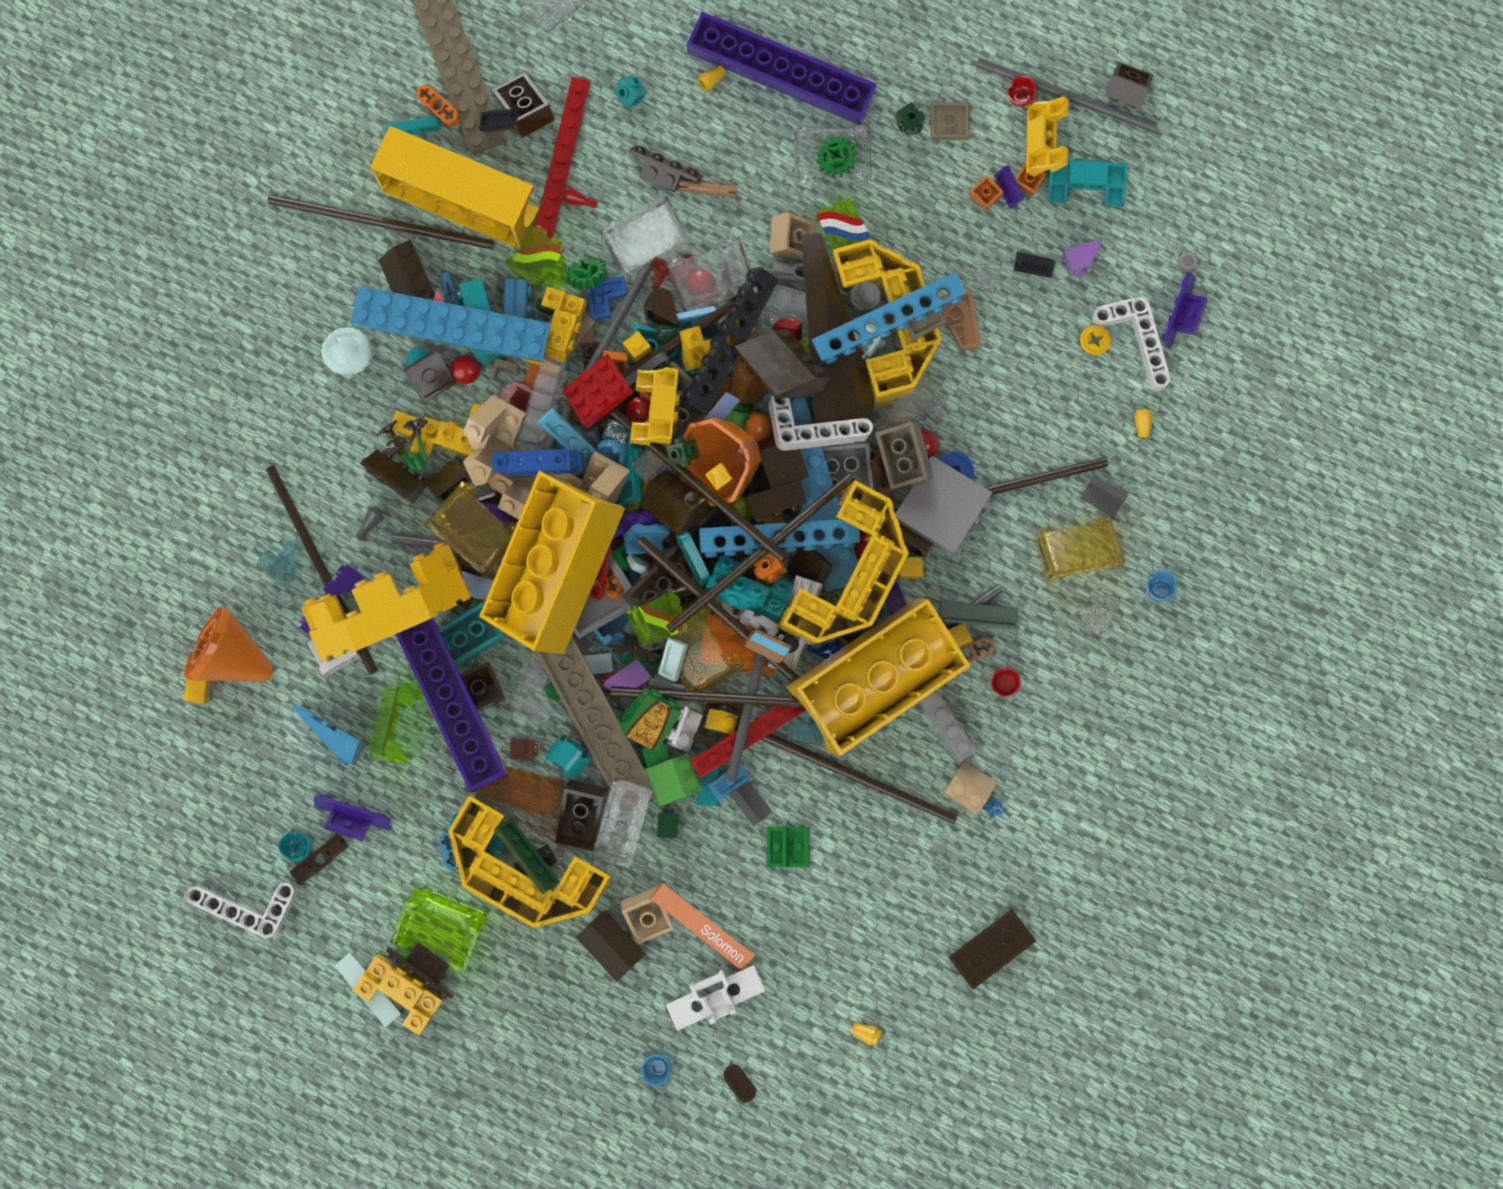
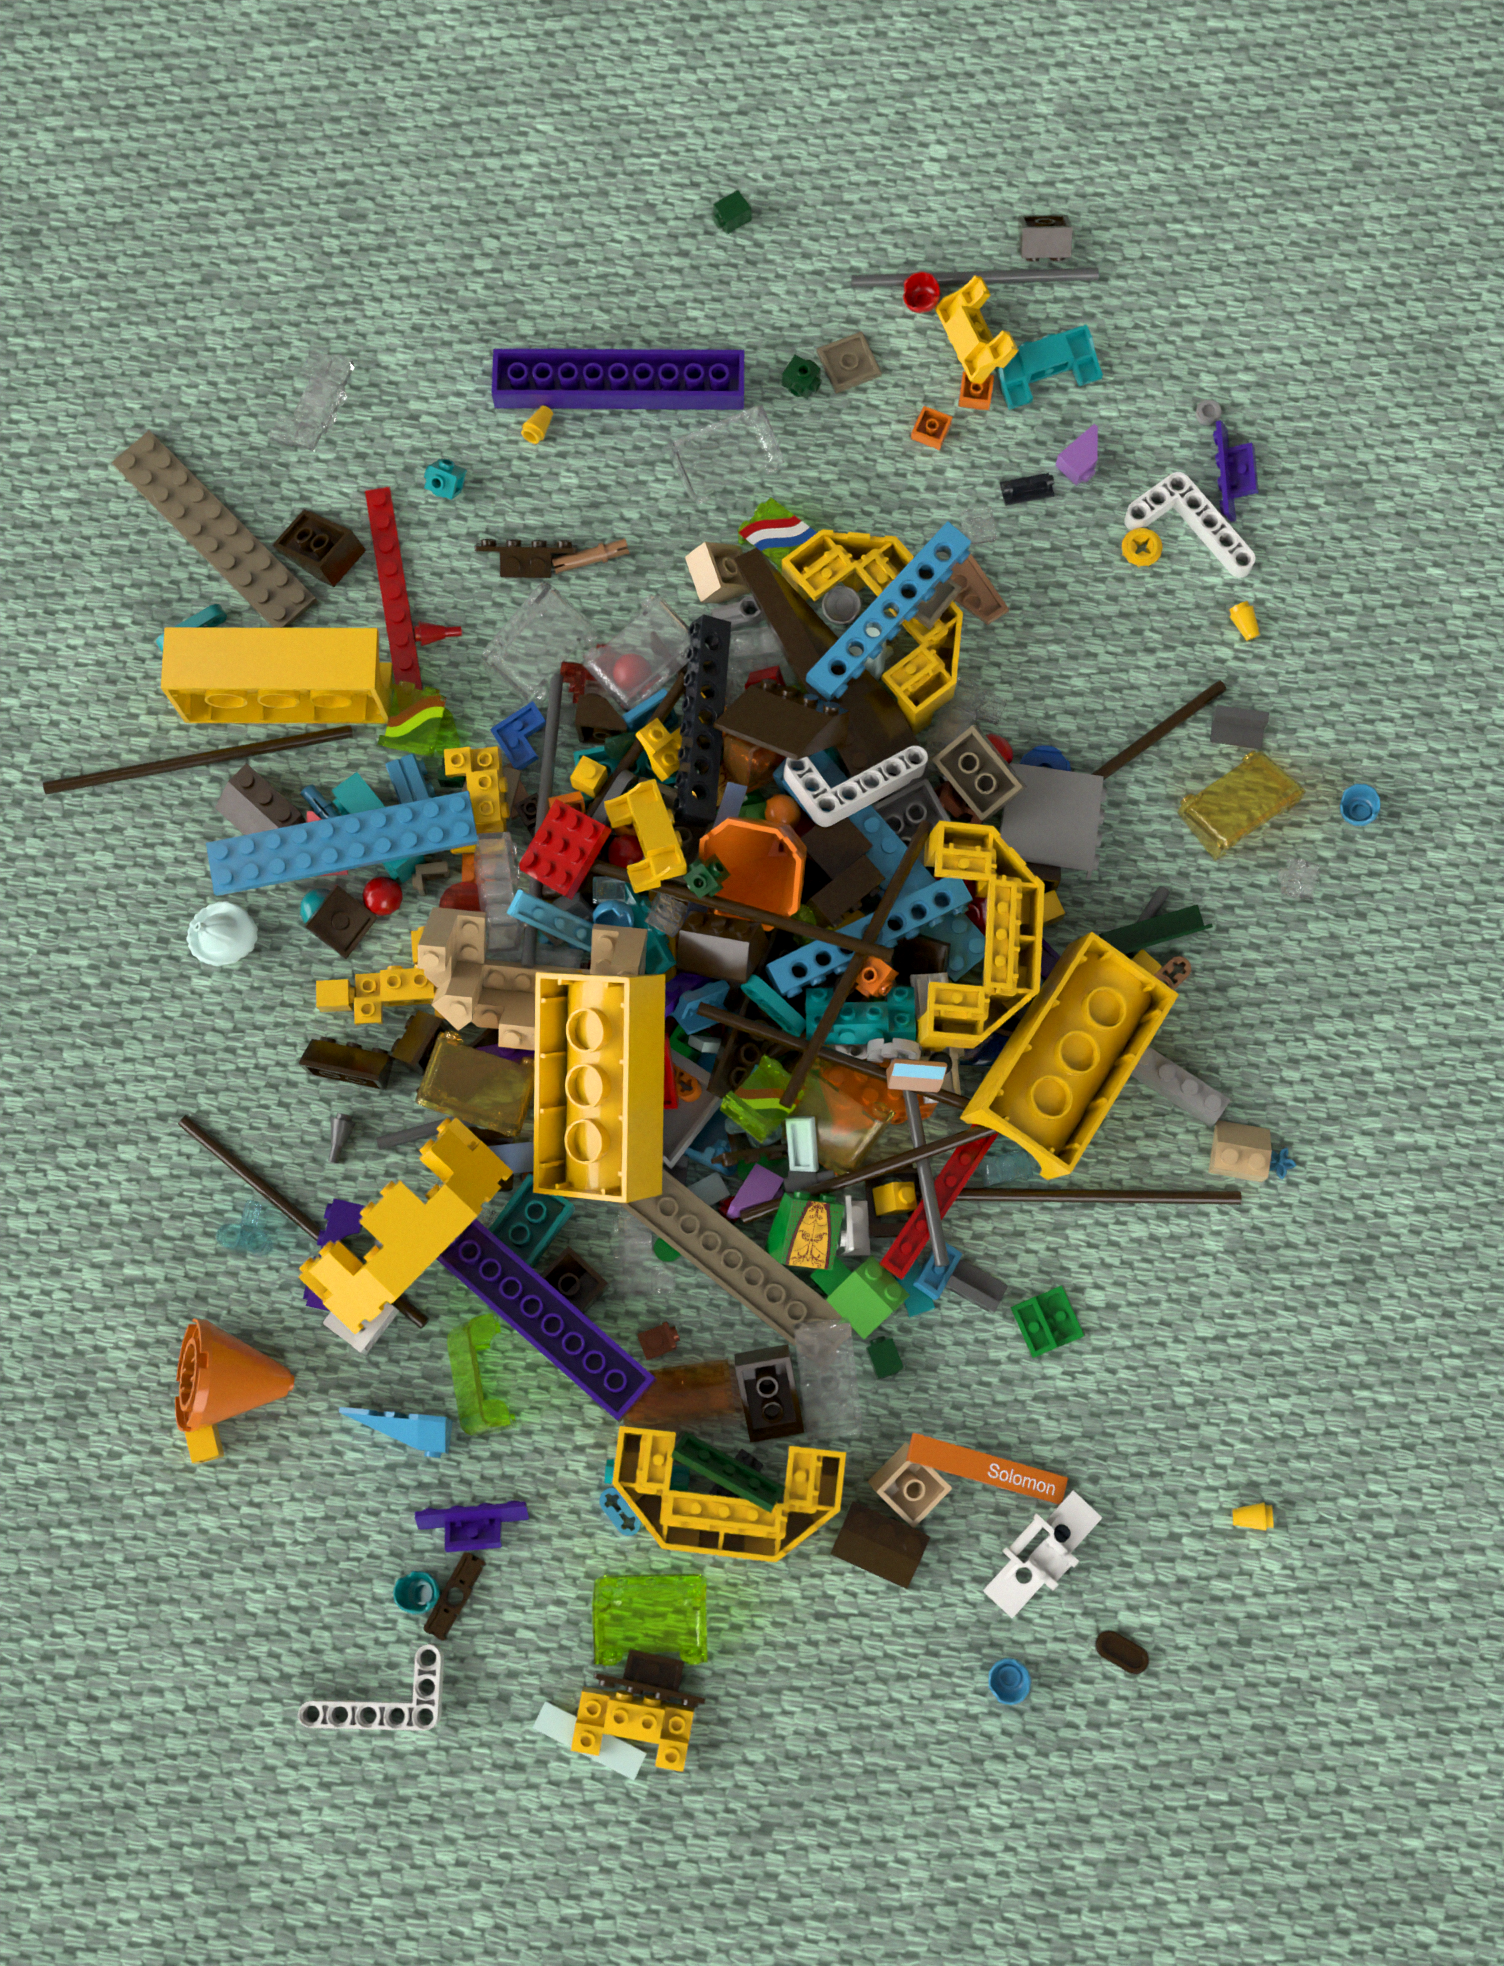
camera: 20 degrees left, 5 degrees down
(397, 444) = (337, 1019): dark brown plant -> none
(446, 107) = (220, 597): orange beam -> none
(497, 120) = (295, 576): black tile -> none
(531, 462) = (520, 968): blue fence -> none
(569, 756) = (721, 1323): teal brick -> none
(586, 273) = (485, 716): green gear -> none
(719, 476) = (764, 889): yellow tile -> none
(837, 148) = (726, 447): green gear -> none
(992, 949) = (1360, 1340): dark brown plate -> none
(1005, 682) = (1224, 1000): red hair -> none
(1009, 187) = (963, 414): dark purple tile -> none

